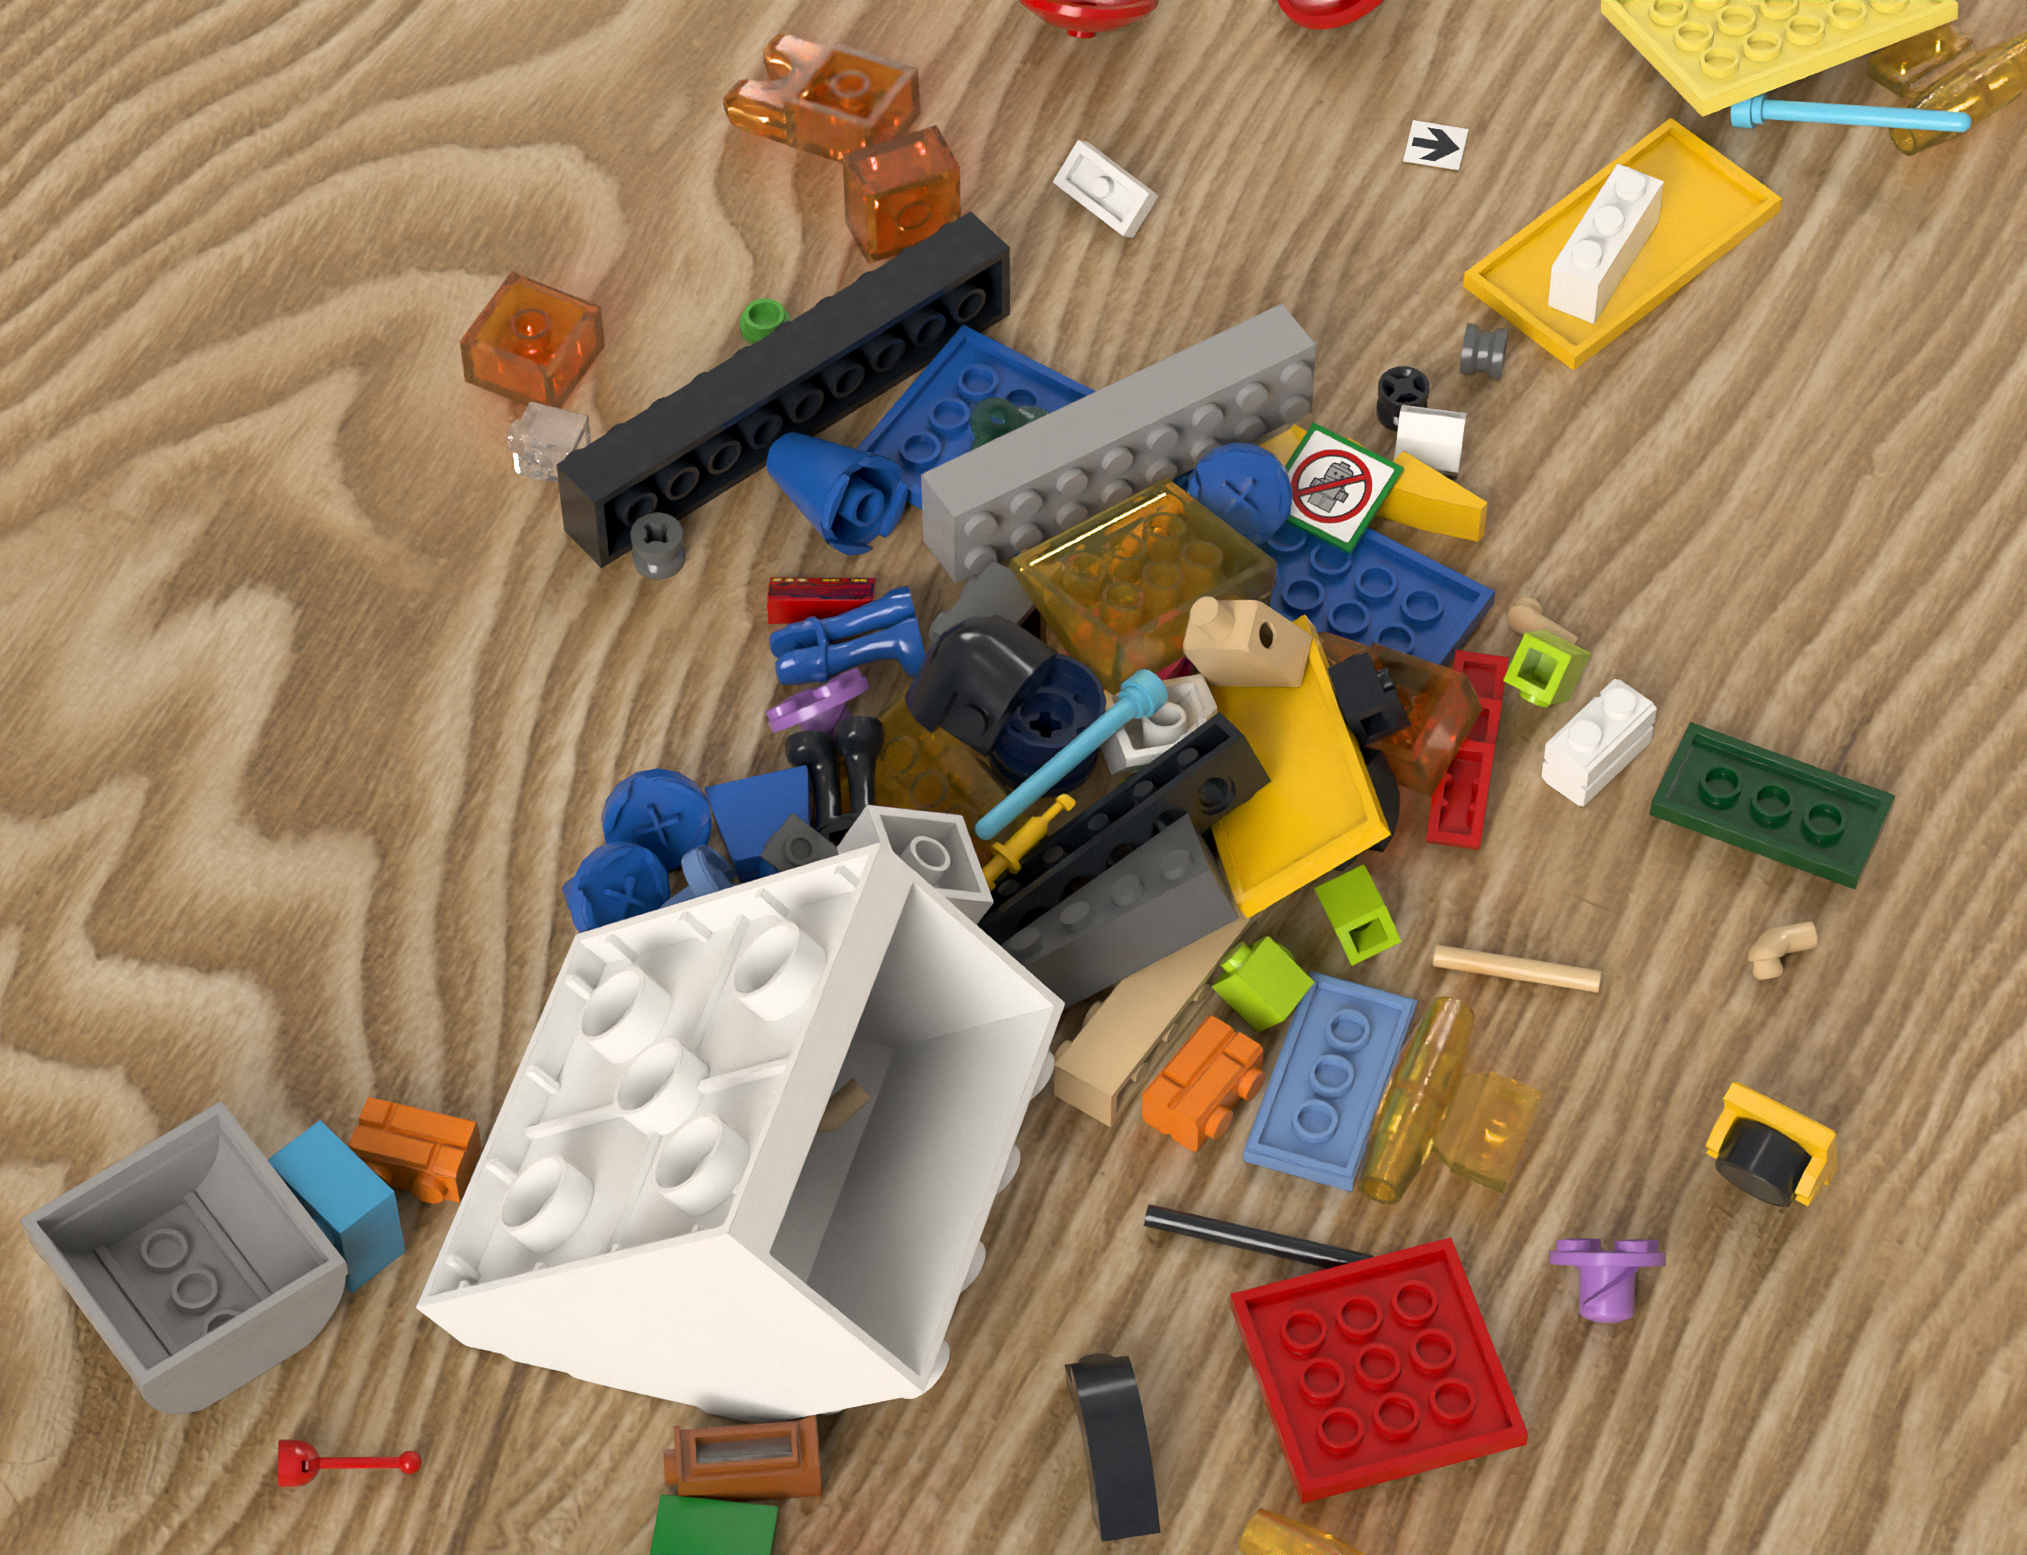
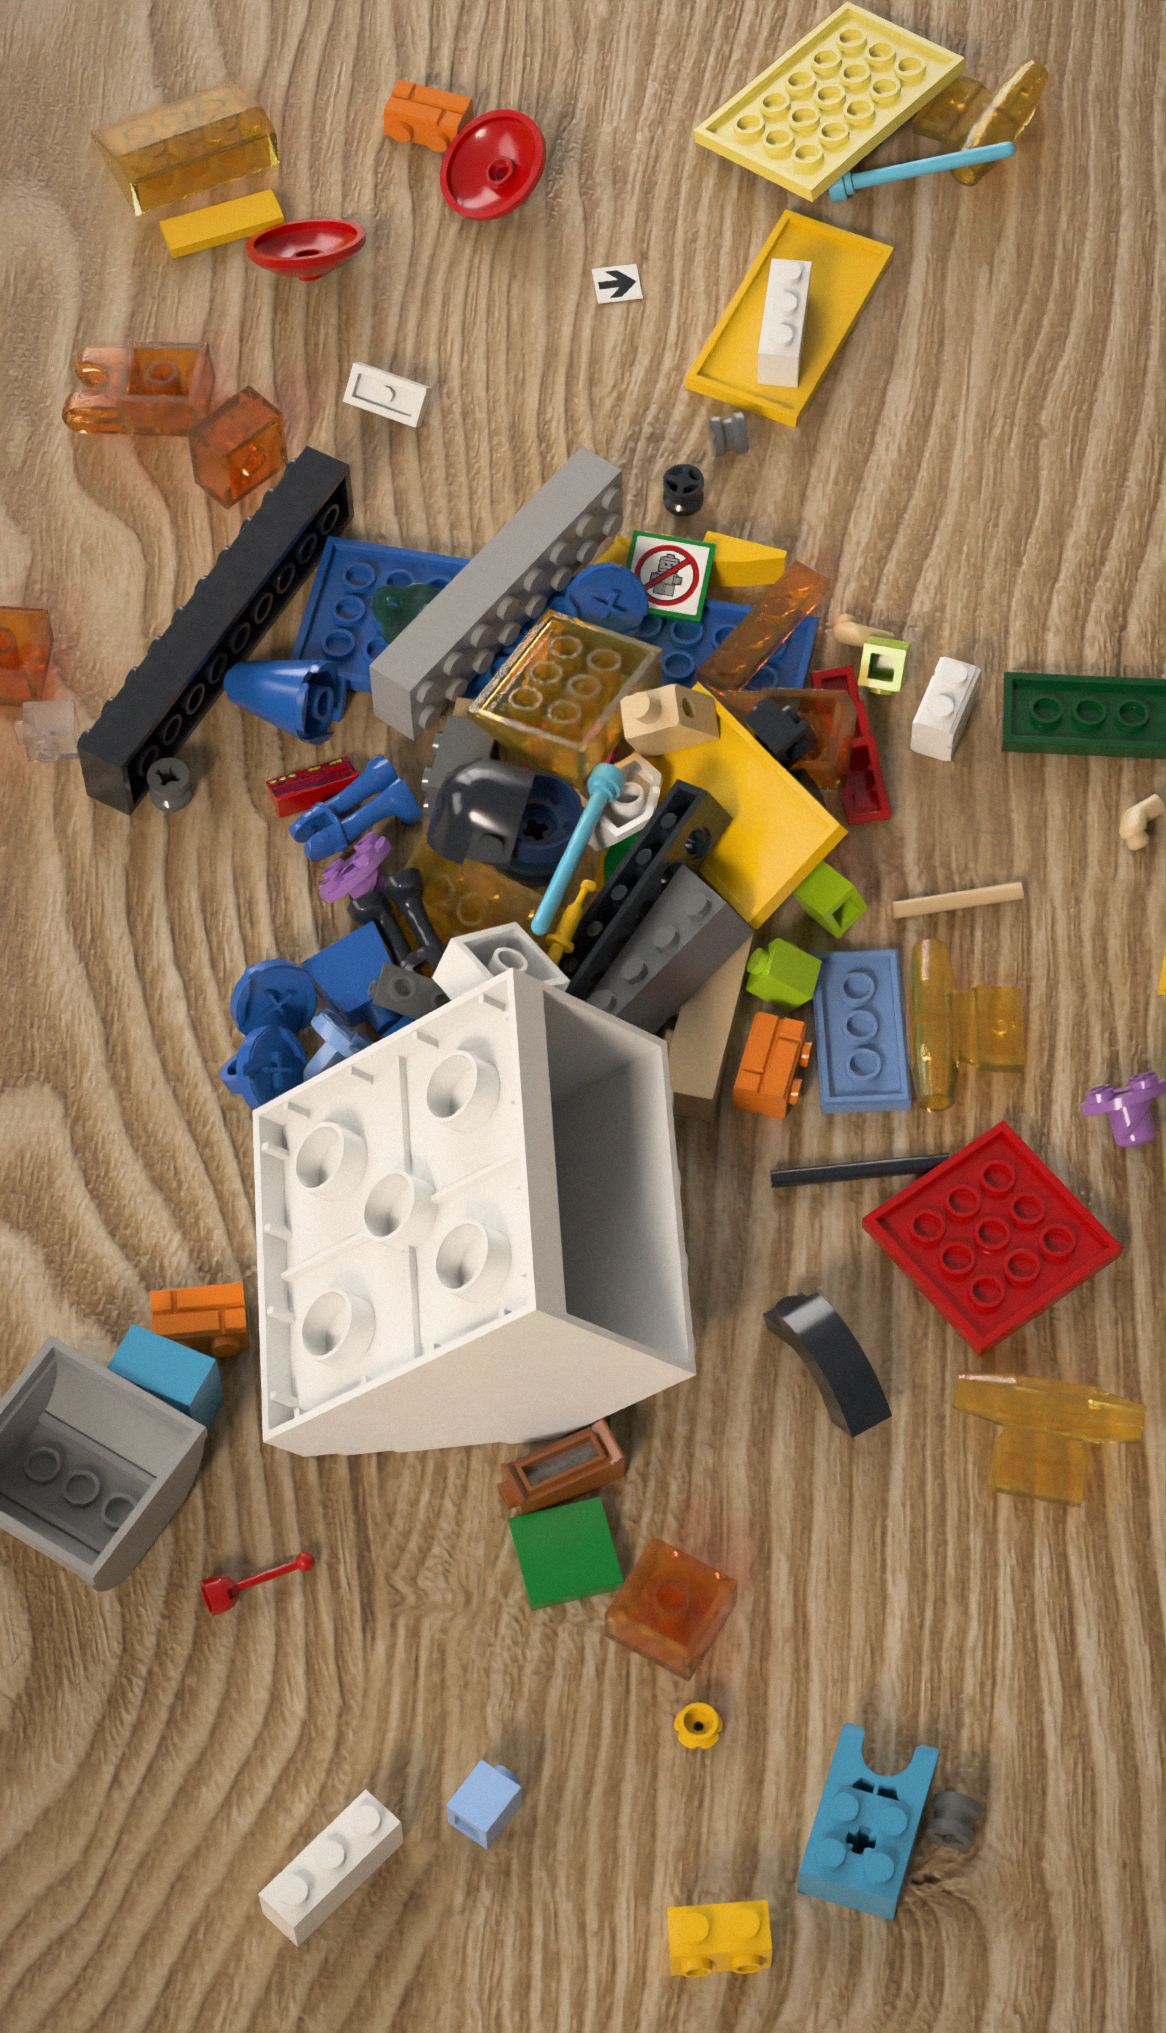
camera: 20 degrees left, 5 degrees up
(761, 319) = (171, 582): bright green plate -> none
(1421, 583) = (764, 629): none -> clear orange plate
(1432, 437) = (720, 512): white piece -> none

